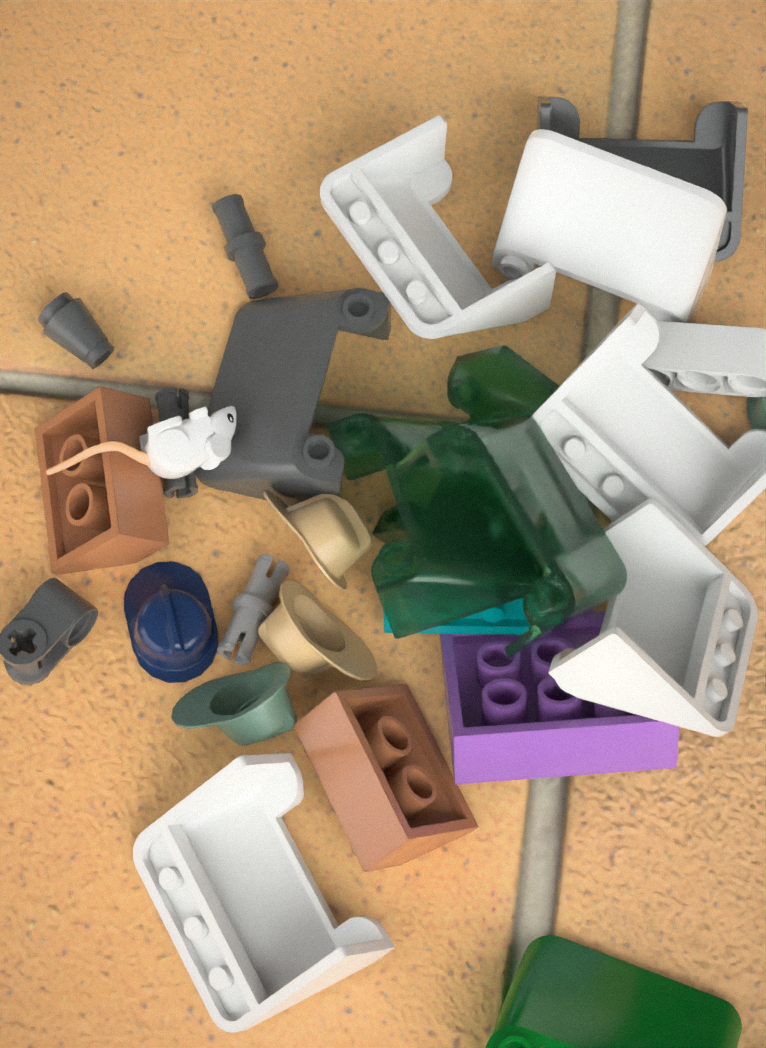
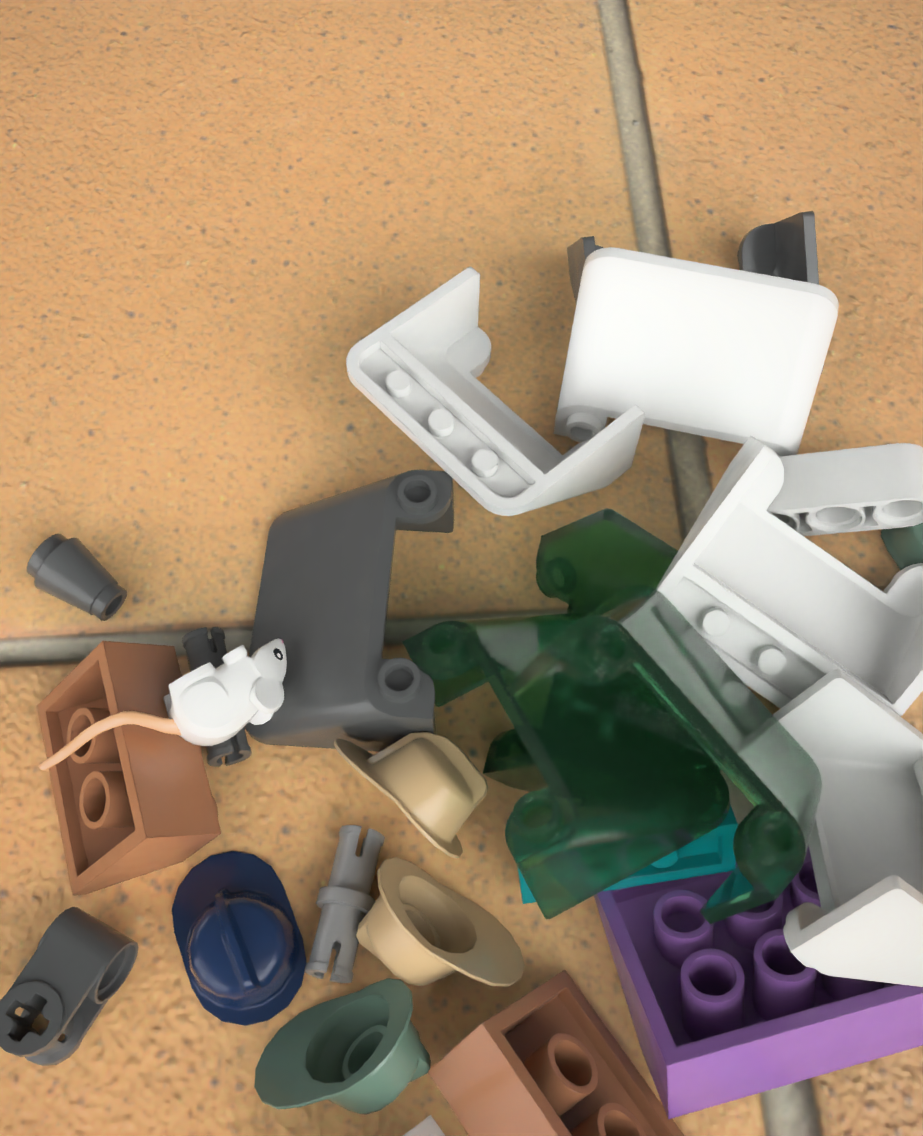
camera: 10 degrees left, 5 degrees down
(245, 246) = (269, 452): dark grey pin -> none

